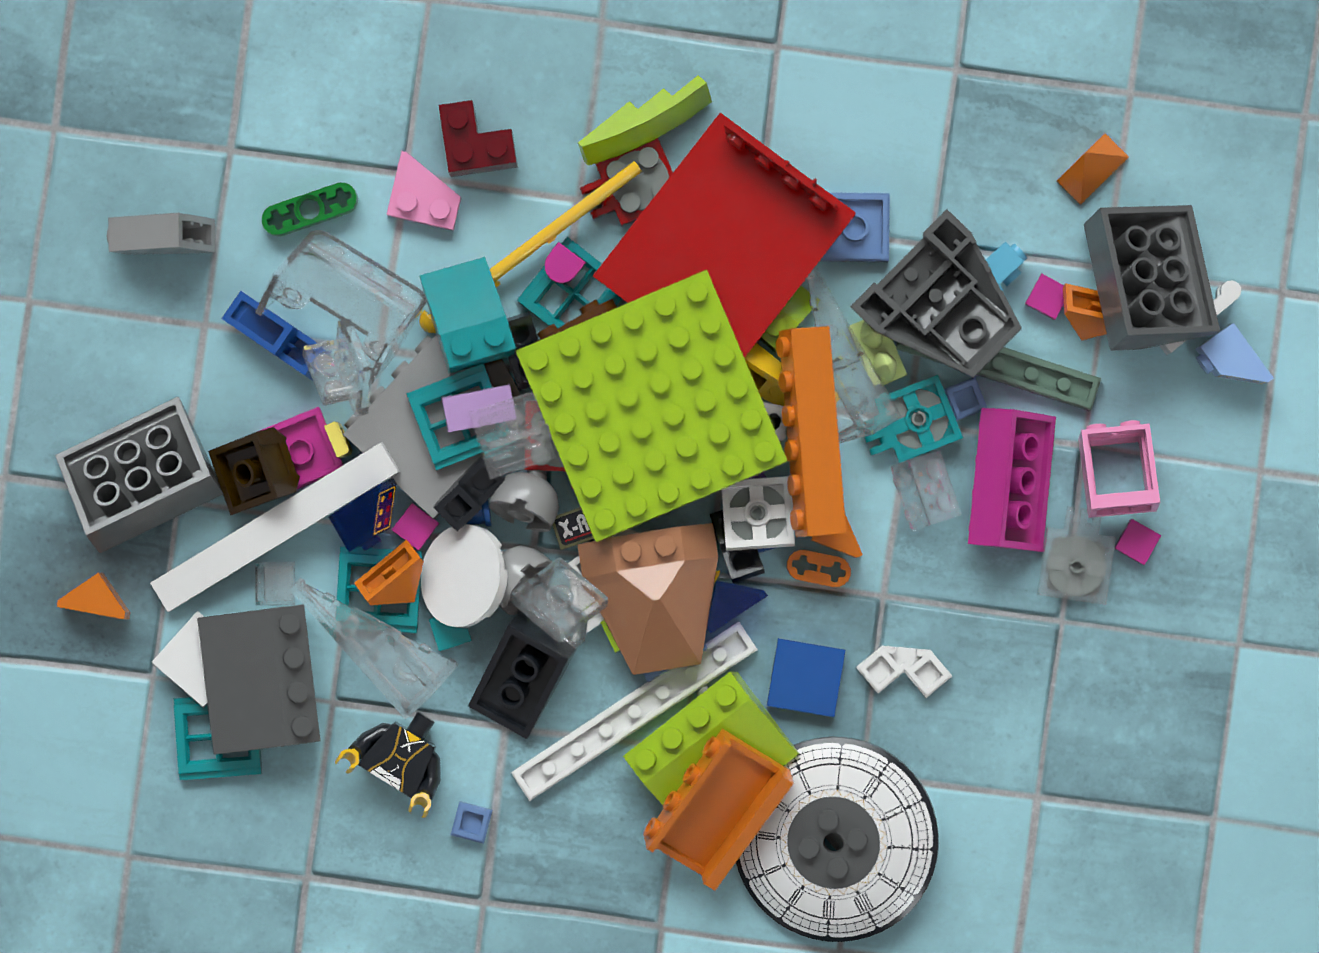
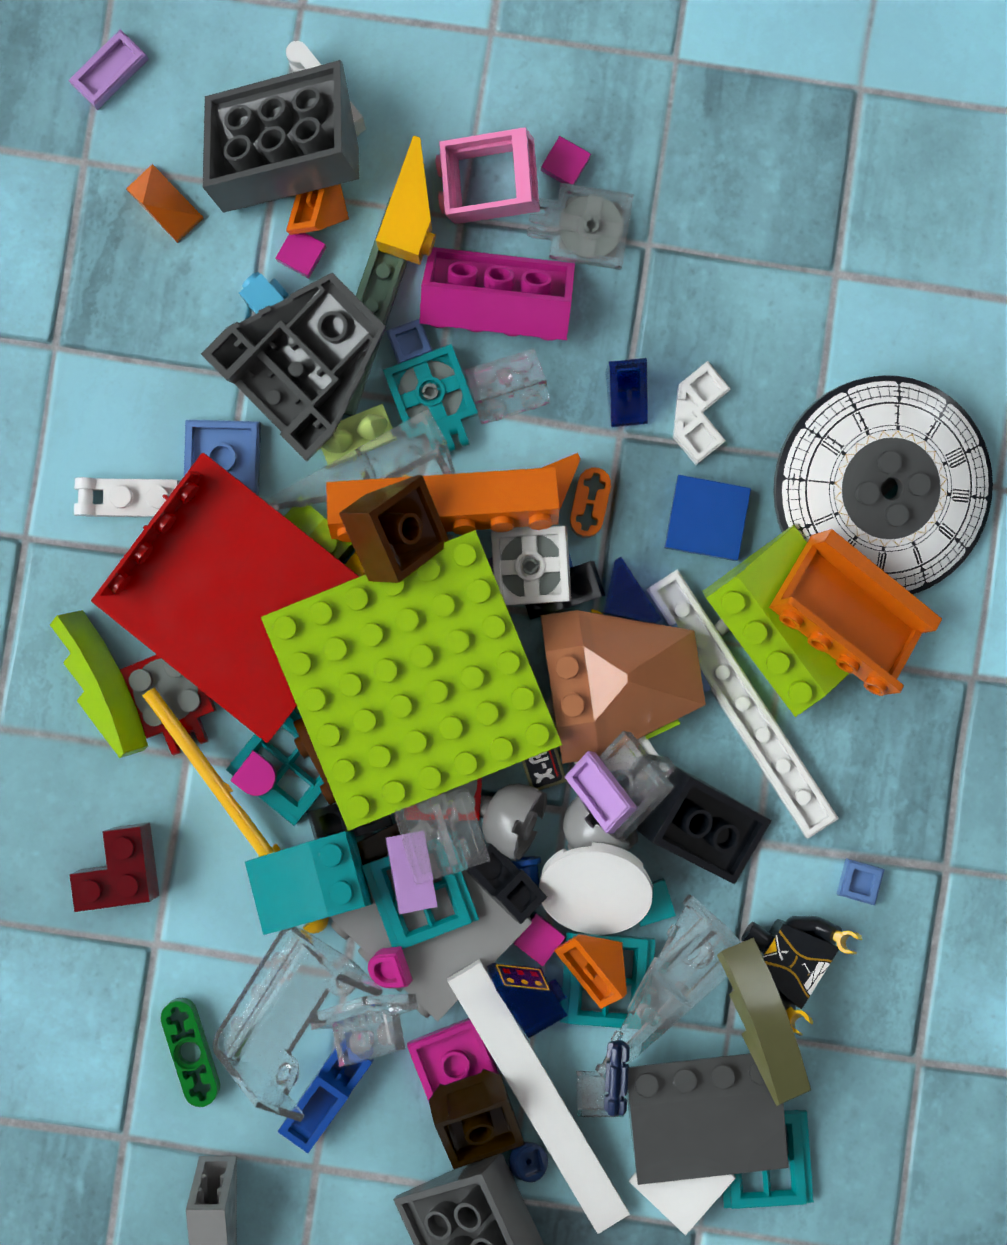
camera: 90 degrees left, 0 degrees up
(214, 519) = (528, 1162): none -> dark blue tile
(295, 596) = (616, 1078): none -> dark blue axle
(338, 440) = (448, 1024): light yellow tile -> none
(349, 729) = (766, 1022): none -> olive slope
(391, 390) = (390, 968): none -> dark pink tile
(422, 196) = (178, 928): bright pink wing -> none
(552, 578) = (600, 792): none -> lavender tile
(785, 389) = (395, 529): none -> reddish brown slope
(817, 139) = (122, 496): none -> white plate
(919, 601) = (627, 392): none -> clear blue slope
(1079, 396) = (407, 221): none -> yellow slope
(1217, 114) = (108, 69): none -> lavender tile
(1232, 357) = (369, 55): light blue slope -> none

